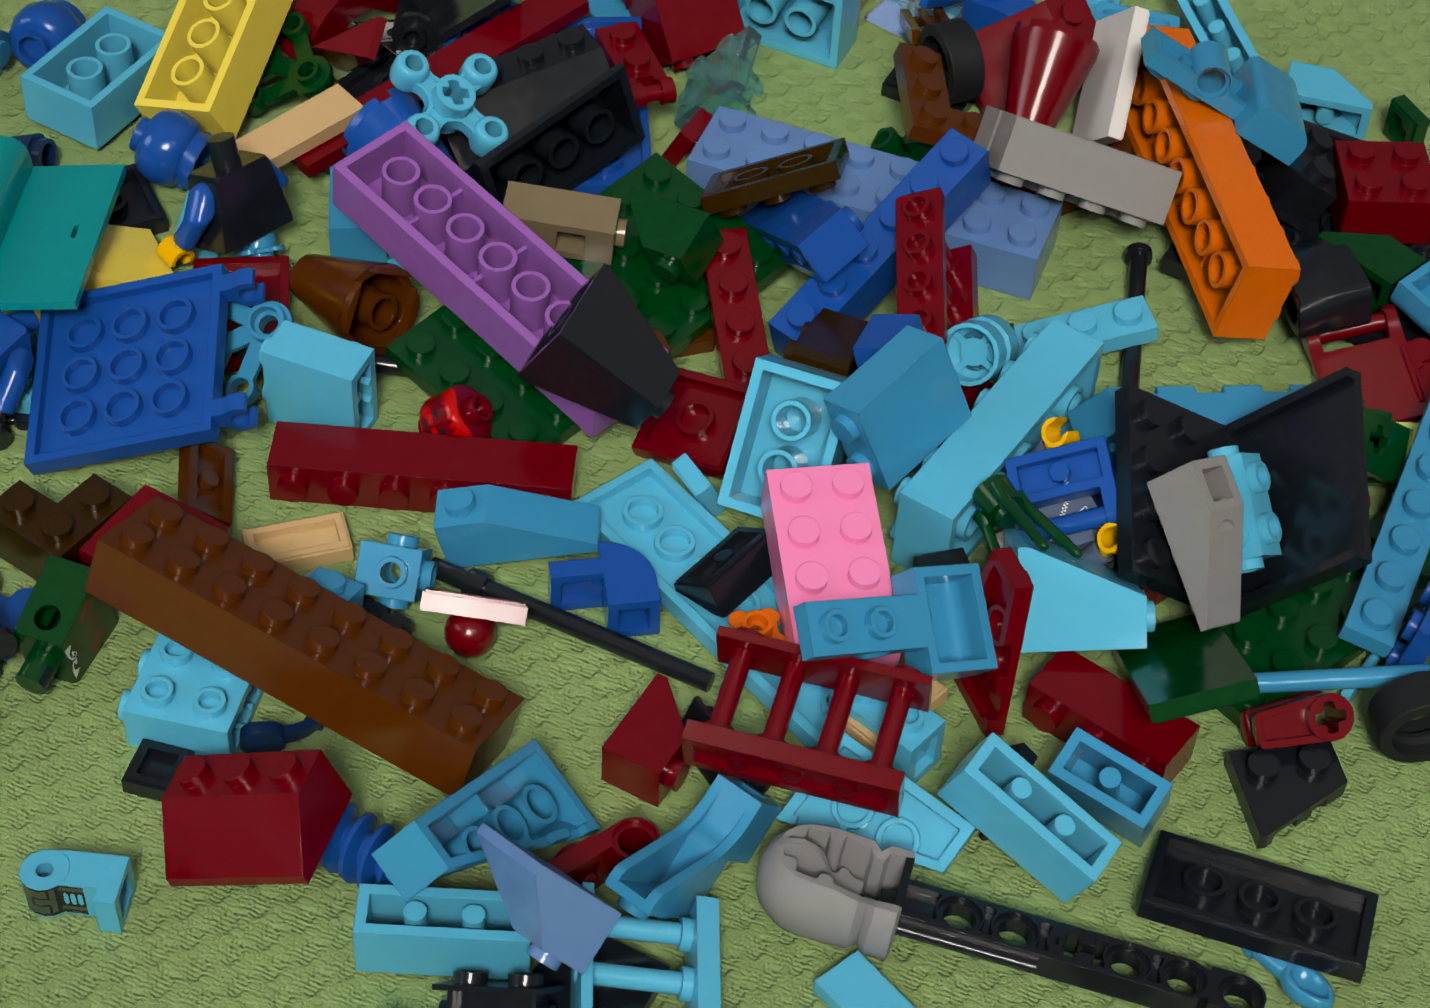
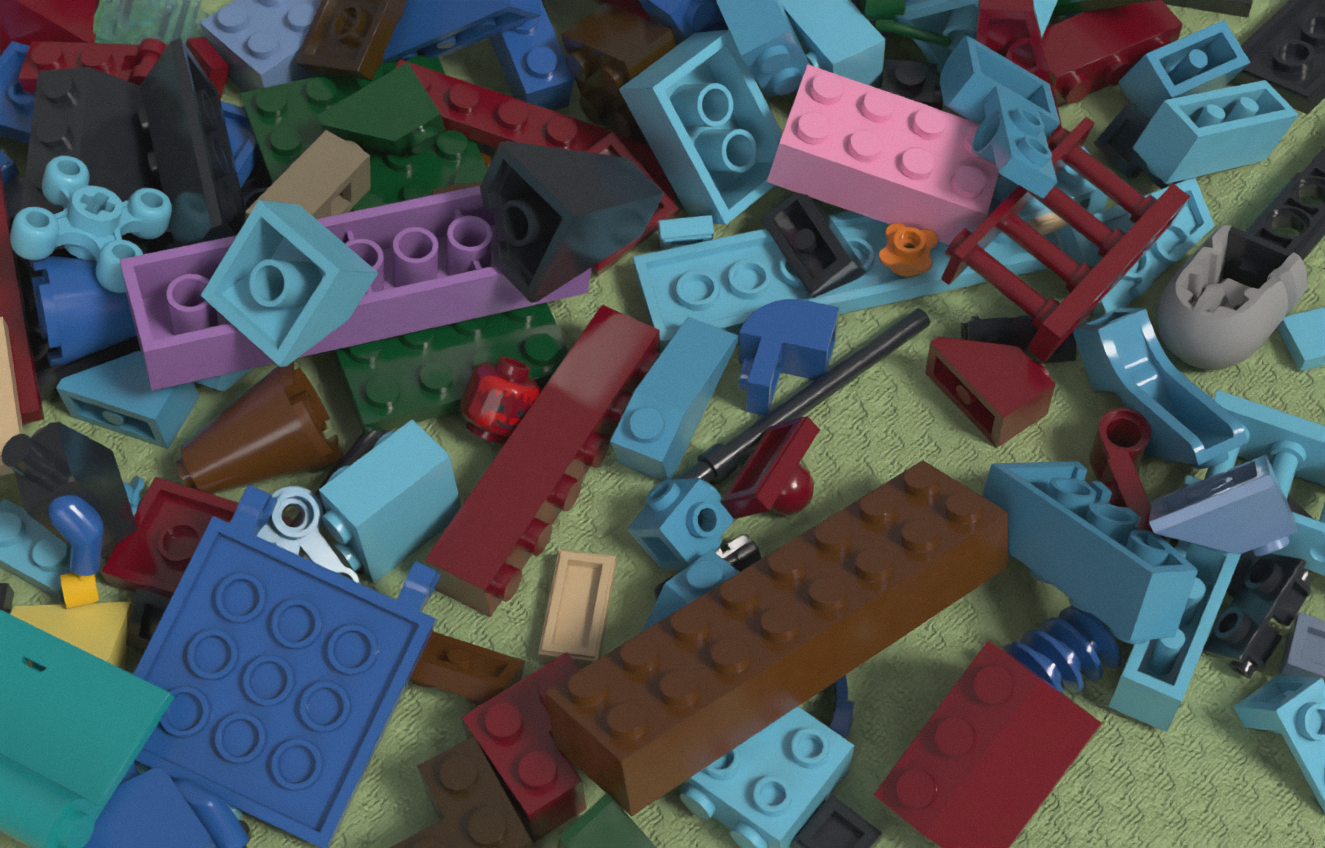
camera: 60 degrees left, 10 degrees up
(434, 212) = (287, 281): none -> medium azure slope

